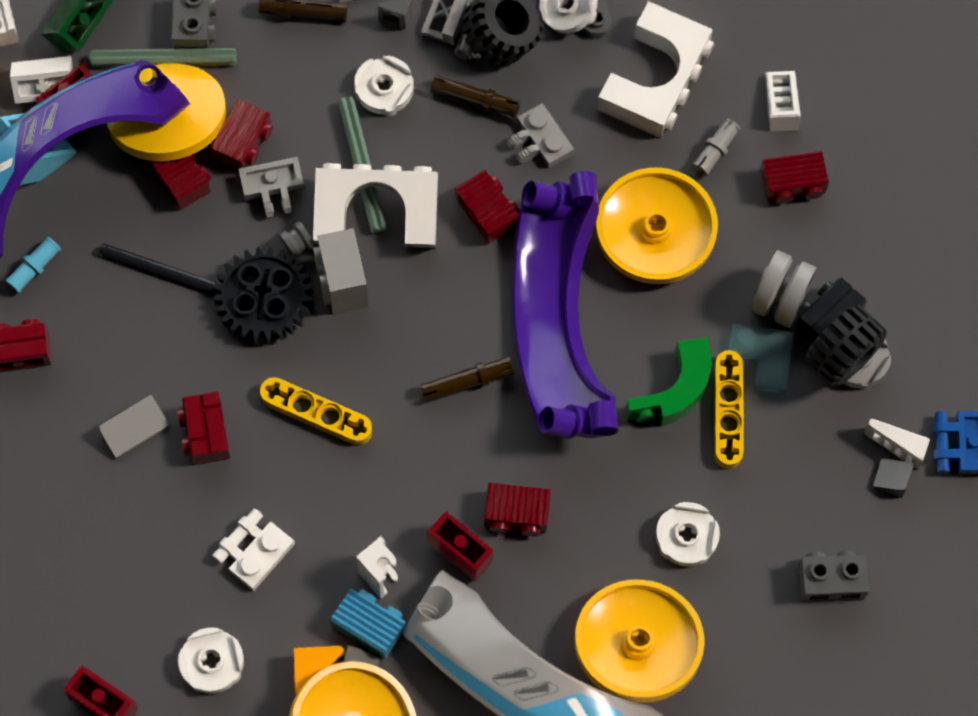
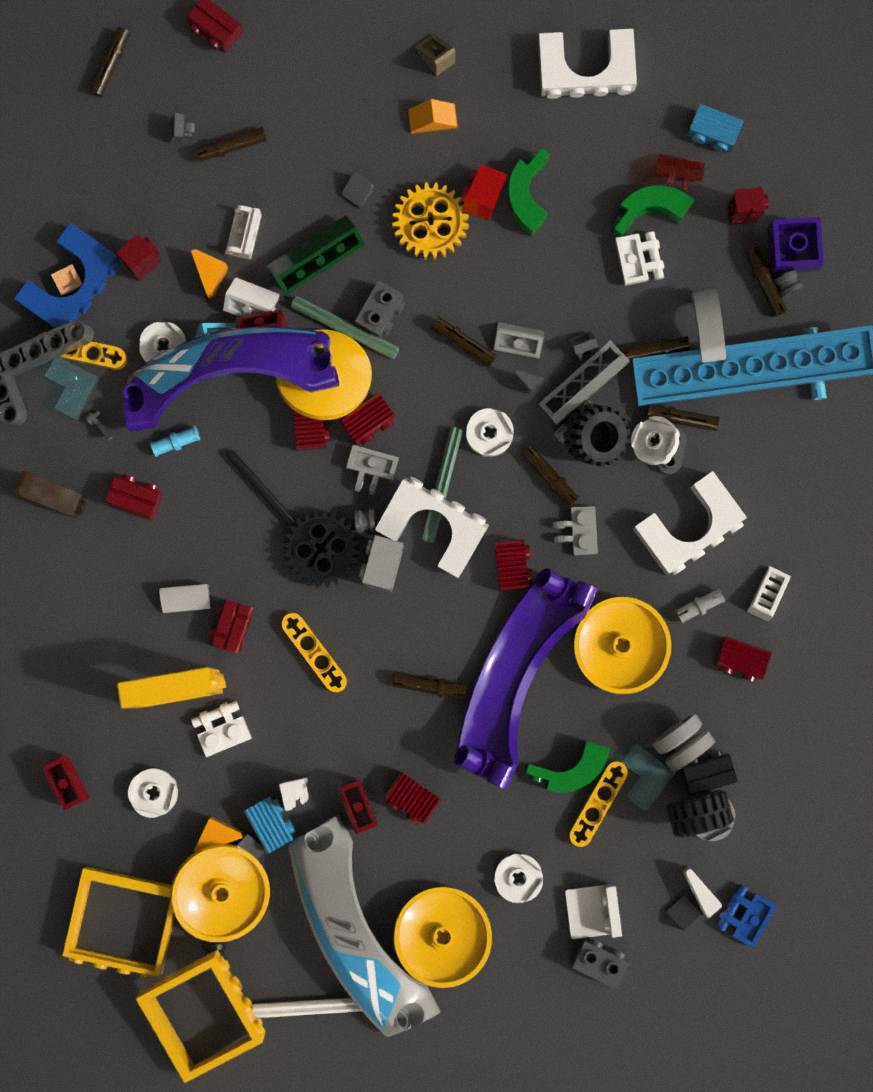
camera: 30 degrees right, 15 degrees up
(164, 501) = (171, 688): none -> yellow window
(794, 524) = (593, 911): none -> white bracket

